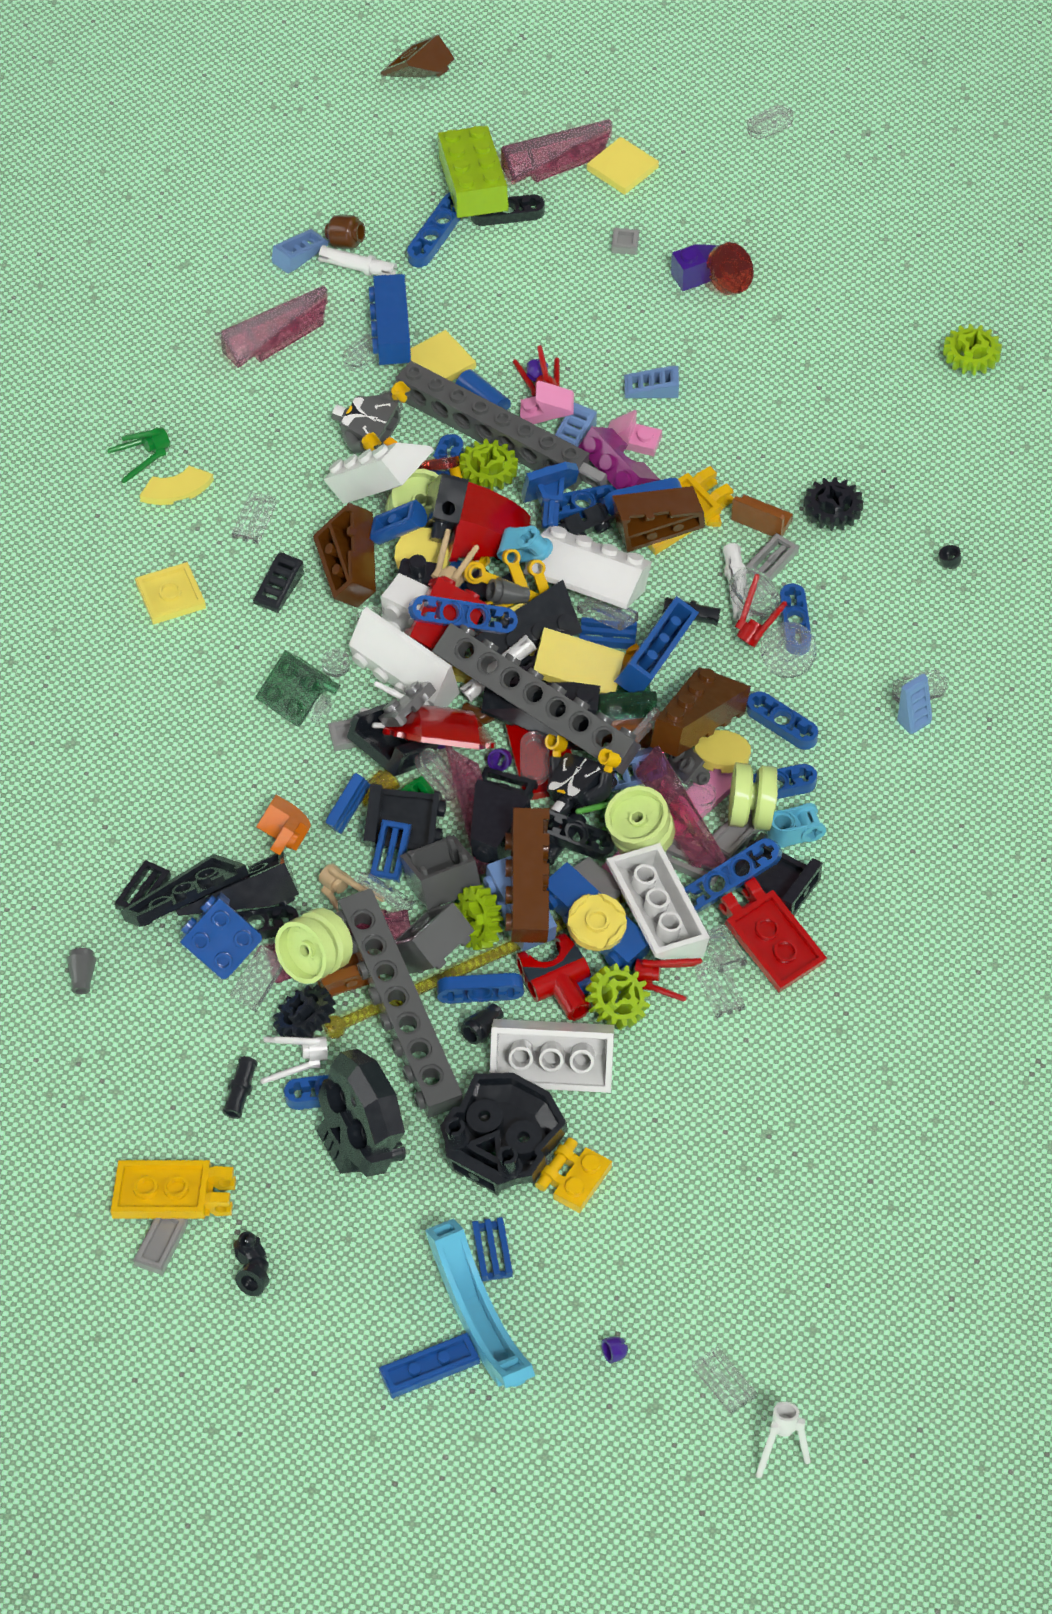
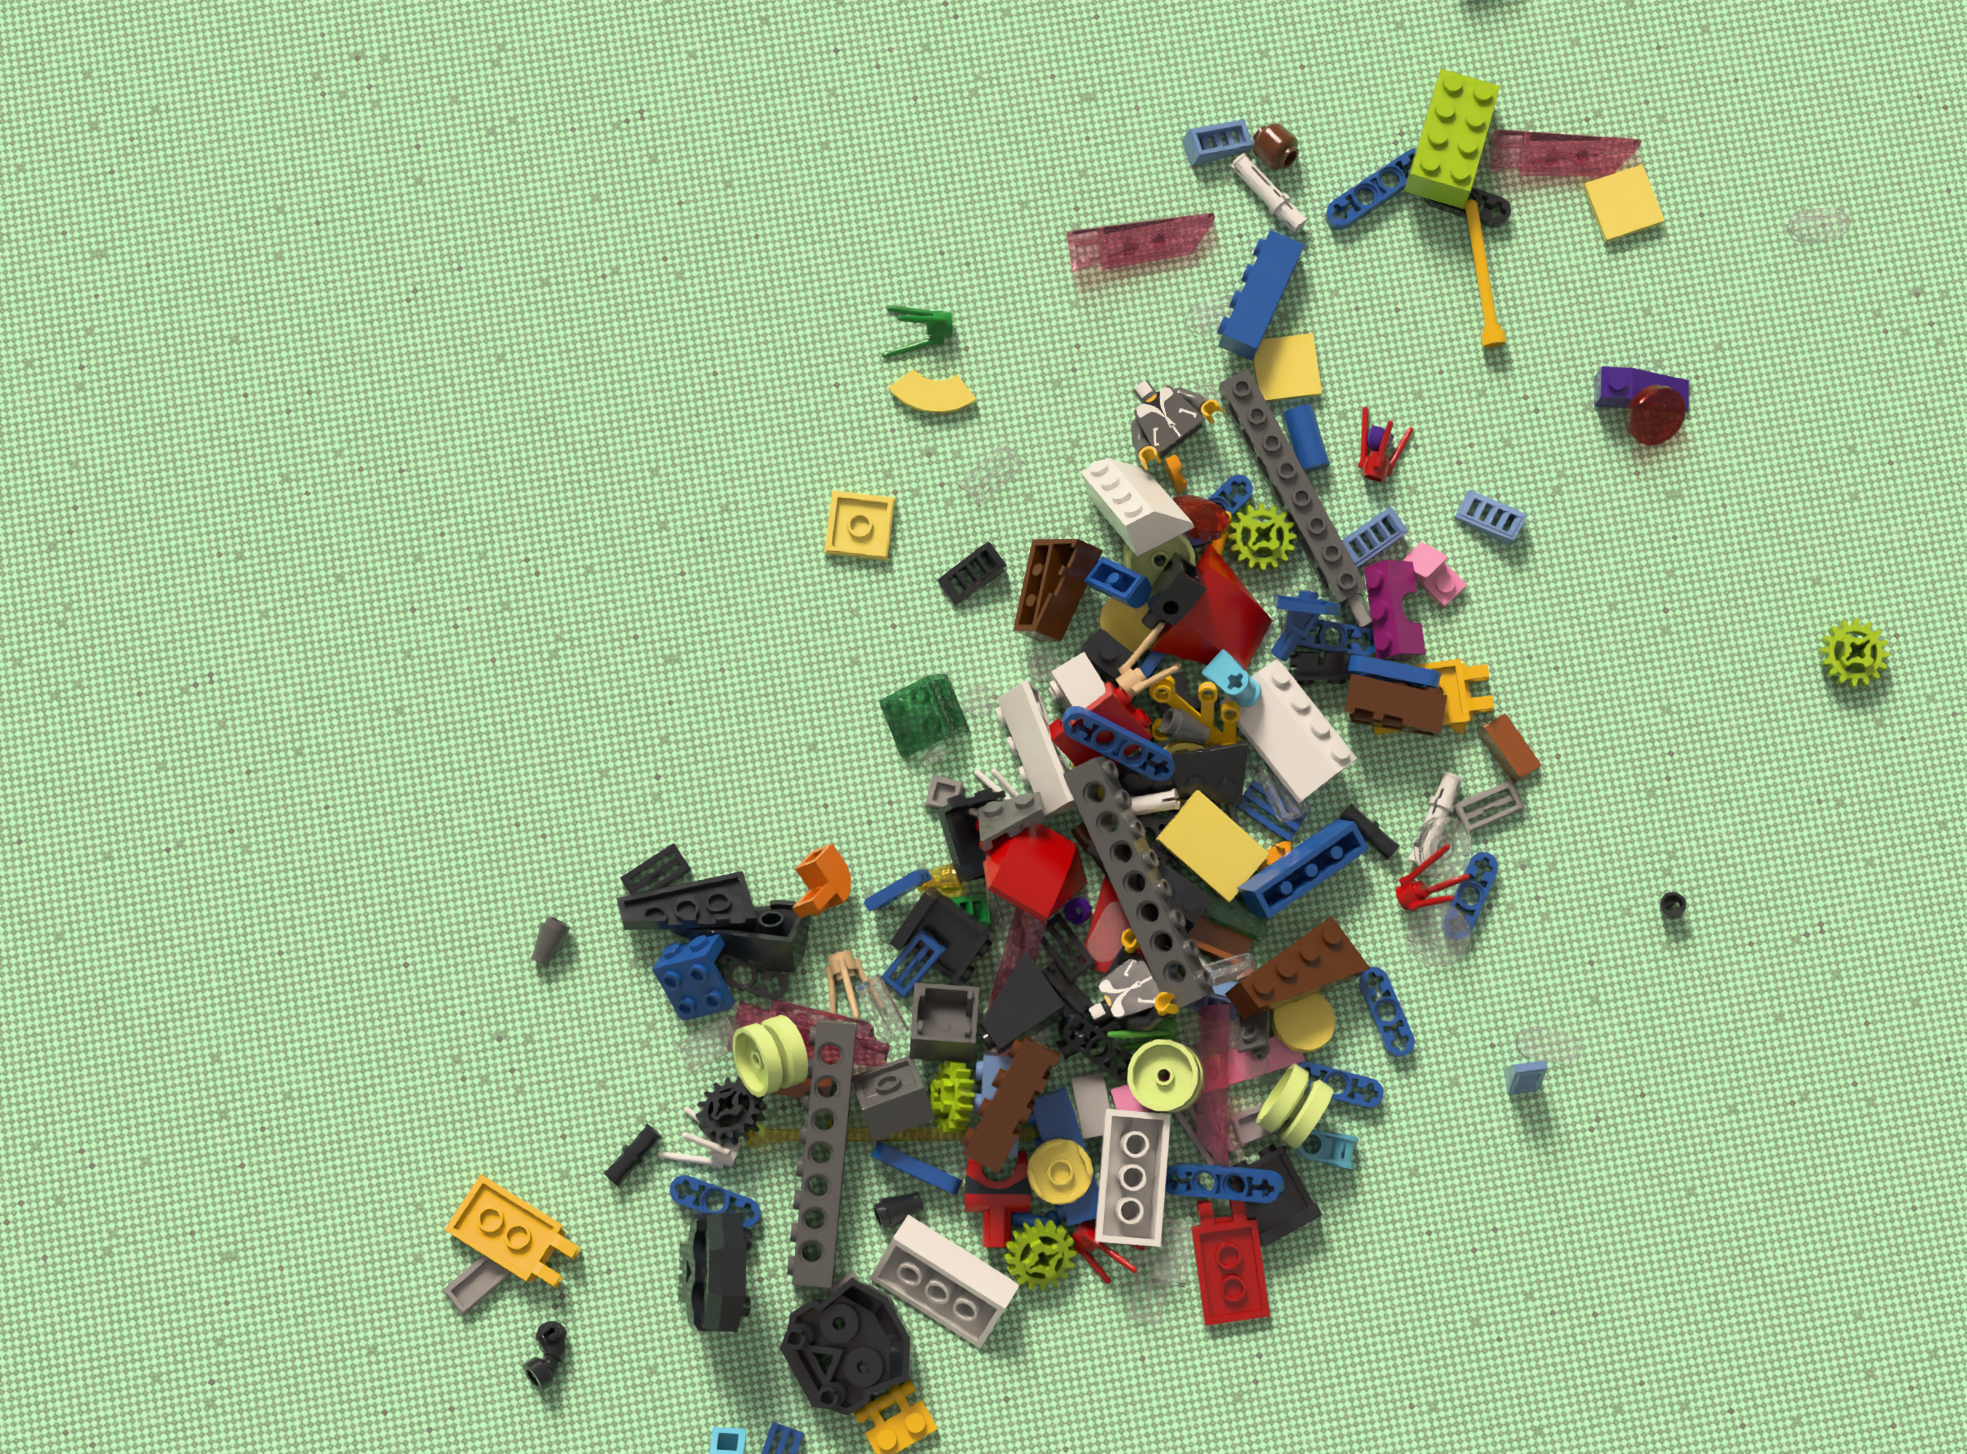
camera: 25 degrees right, 25 degrees up
(548, 404) = (1362, 493): bright pink slope -> none
(579, 275) = (1492, 333): none -> yellow piece
(625, 241) = (1569, 309): light grey tile -> none
(835, 503) = (1576, 774): black gear -> none

